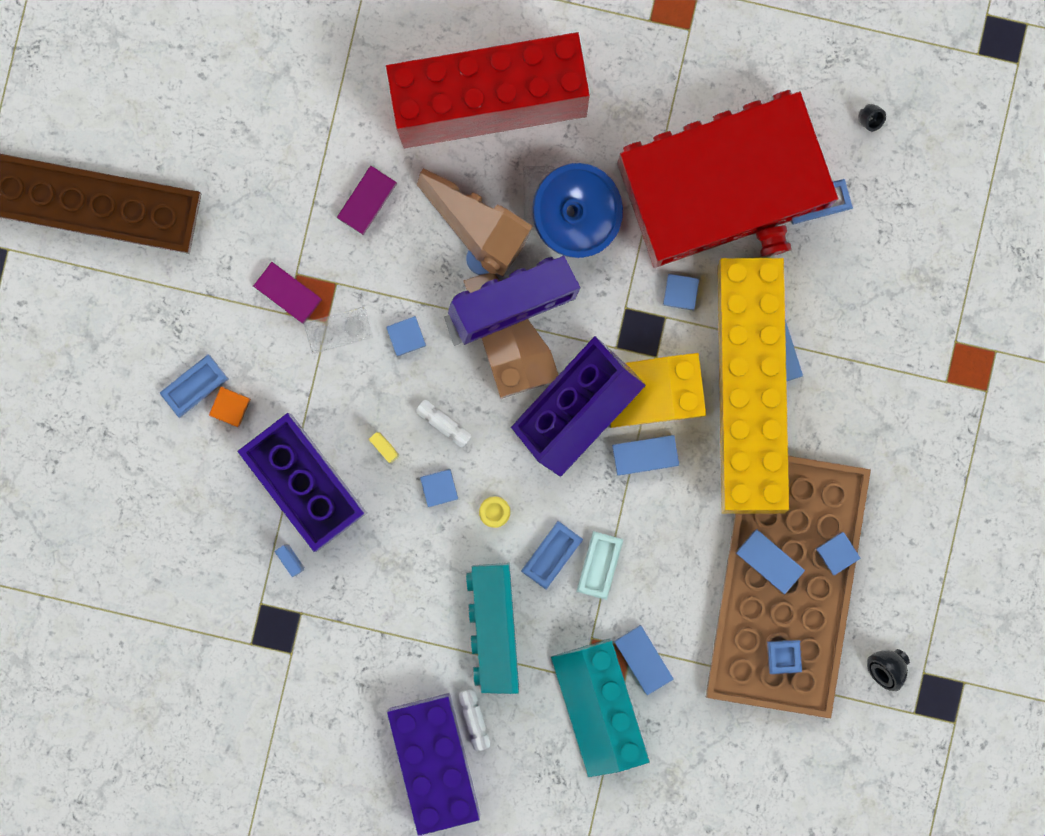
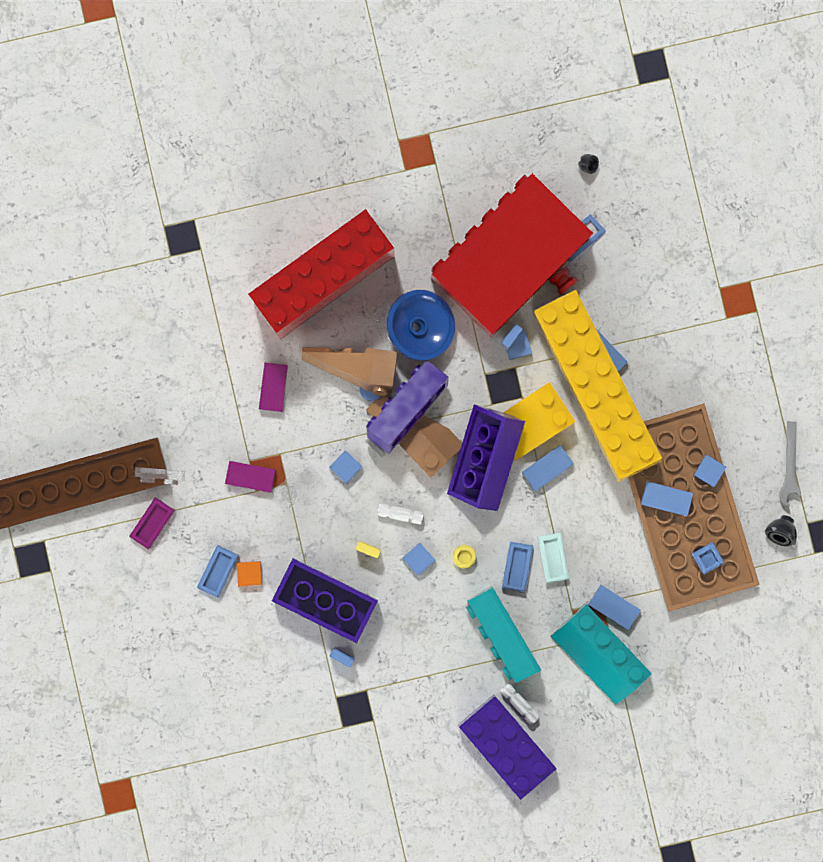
camera: 35 degrees left, 0 degrees up
(144, 291) = (152, 523): none -> magenta tile
(190, 245) = (149, 475): none -> clear plate
(679, 276) = (511, 336): none -> medium blue tile
(926, 615) = (790, 483): none -> light grey piece

